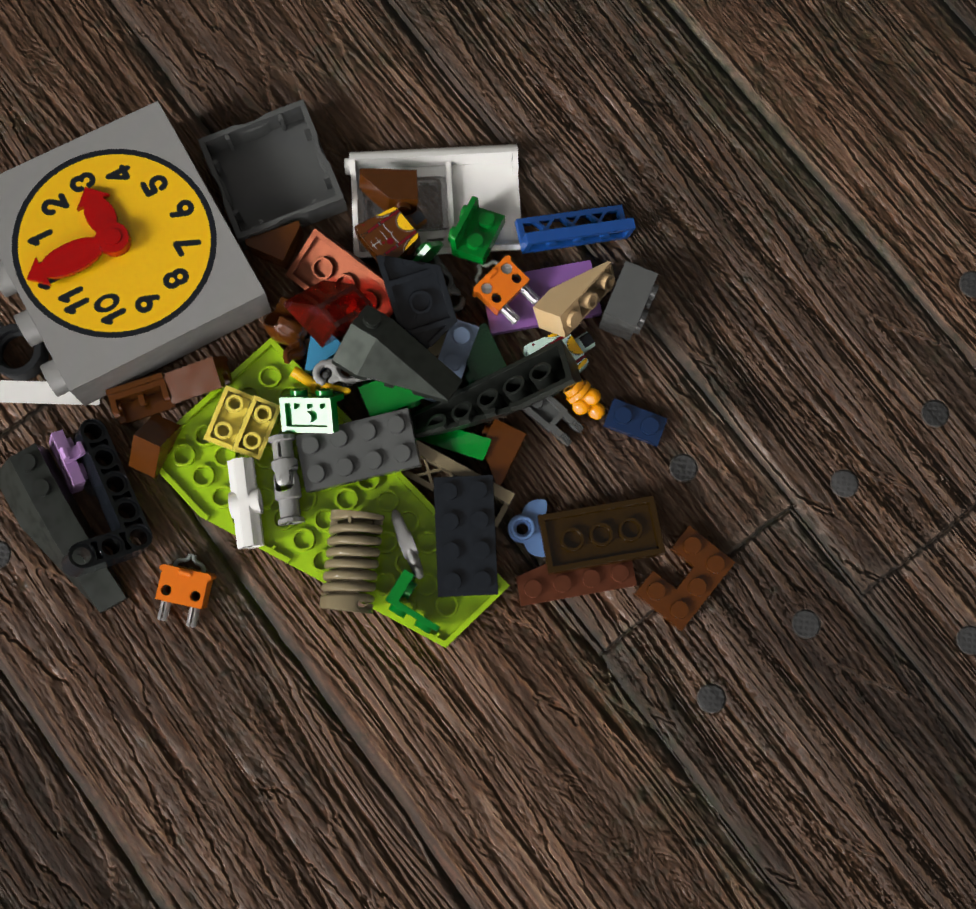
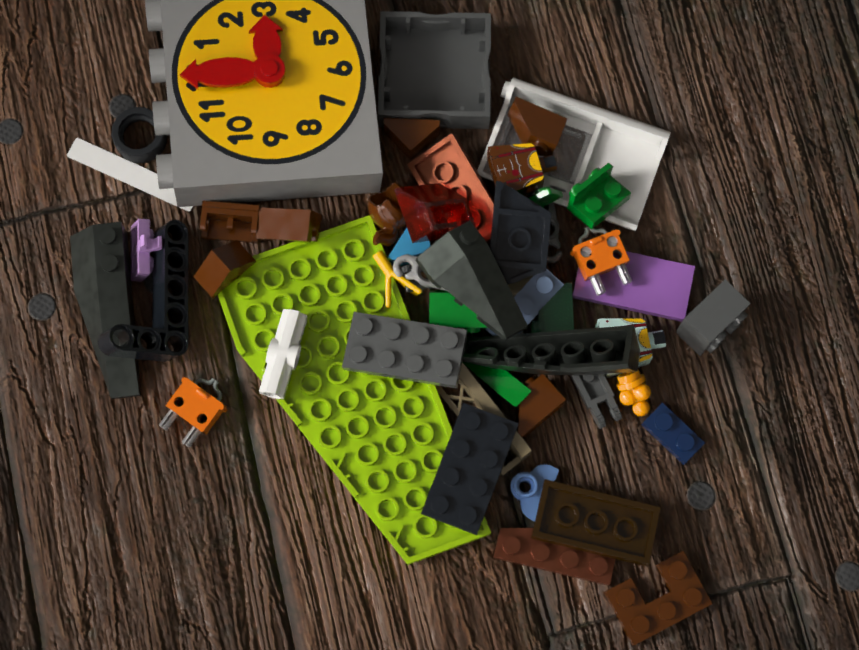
camera: 25 degrees right, 5 degrees down
(242, 422) = (311, 281): light yellow slope -> none
(286, 475) = (330, 344): light grey piece -> none
(310, 411) = (377, 296): bracket -> none
(345, 564) = (336, 454): dark tan piece -> none
(403, 589) = (392, 492): green bracket -> none
(407, 544) = (413, 453): light grey piece -> none
(571, 234) = (686, 235): blue fence -> none
(572, 300) = (660, 296): tan slope -> none

